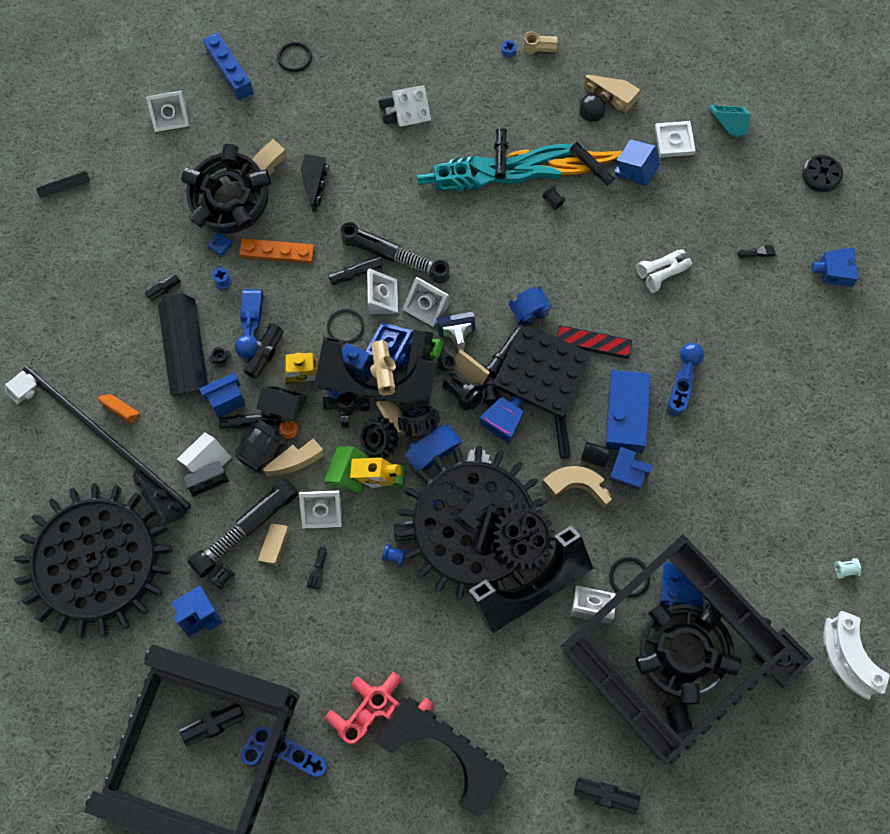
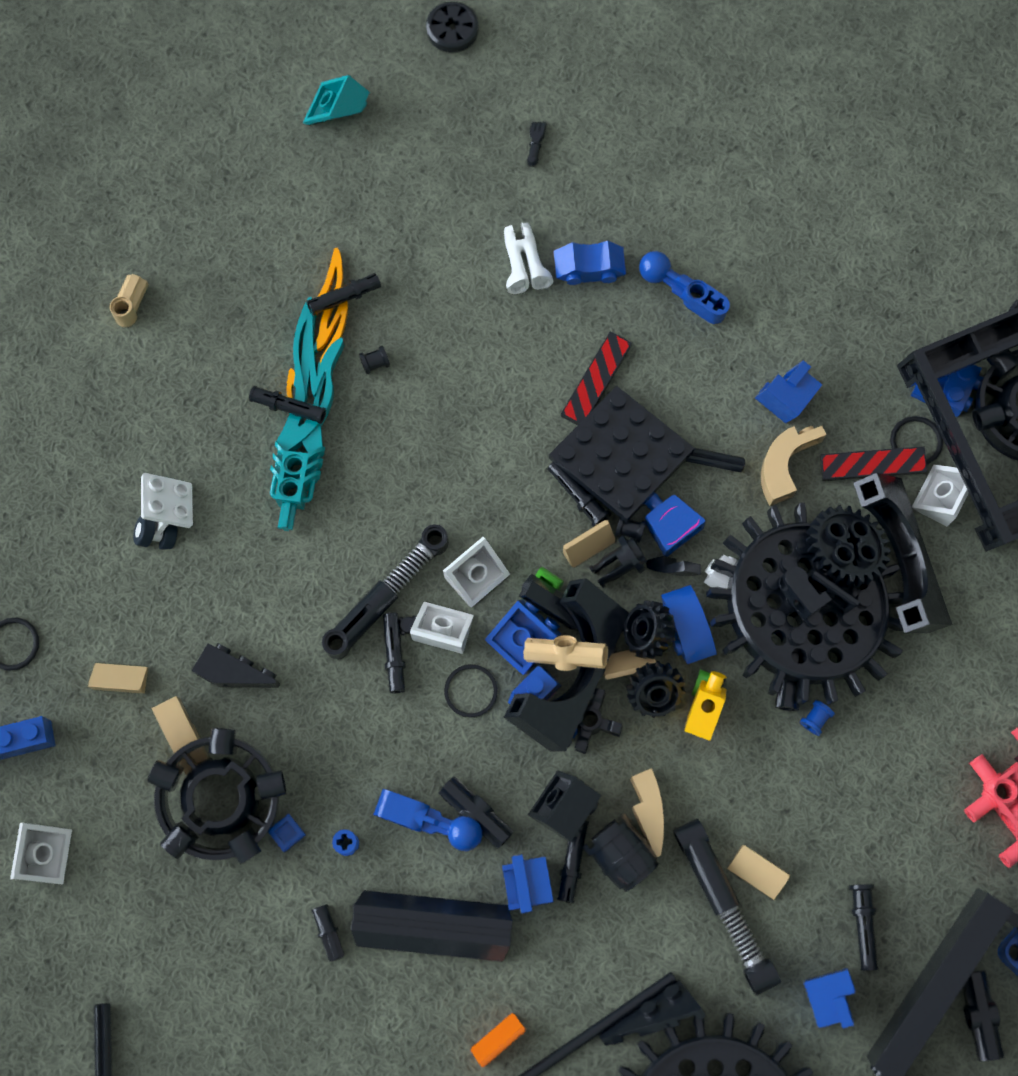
camera: 70 degrees left, 5 degrees up
(204, 453) = (608, 937): white slope -> none
(206, 479) = (642, 940): black slope -> none
(218, 351) = (455, 877): black plate -> none
(222, 576) = (792, 957): black bush -> none
(264, 623) = (868, 961): none -> black pin
(276, 251) = (324, 754): orange plate -> none
(288, 429) = (604, 811): orange plate -> none
(290, 119) = (118, 678): none -> tan slope
(300, 367) = (521, 768): yellow torso -> none
(315, 576) = (815, 827): black piece -> none
(320, 509) = (730, 795): white slope -> none
(340, 469) = (679, 749): bright green slope -> none
(450, 362) = (569, 571): black plate -> none
(456, 327) = (527, 543): piece -> none
(472, 428) = (671, 566): none -> black slope
(508, 43) = (112, 339): blue bush -> none
(530, 305) = (528, 439): blue brick -> none
(592, 107) = (253, 266): black hair -> none
(595, 454) = (752, 426): black piece -> none
(598, 548) = (866, 463): none -> tile
(615, 91) = (243, 228): tan slope -> none
(627, 410) = (707, 369): blue brick -> none
(637, 162) = (362, 238): blue plate -> none
(674, 139) = (340, 181): white plate -> none
(678, 311) = (589, 263): none -> blue brick
(837, 267) = (590, 58): blue torso -> none
(848, 568) = (973, 192): light aqua bush -> none

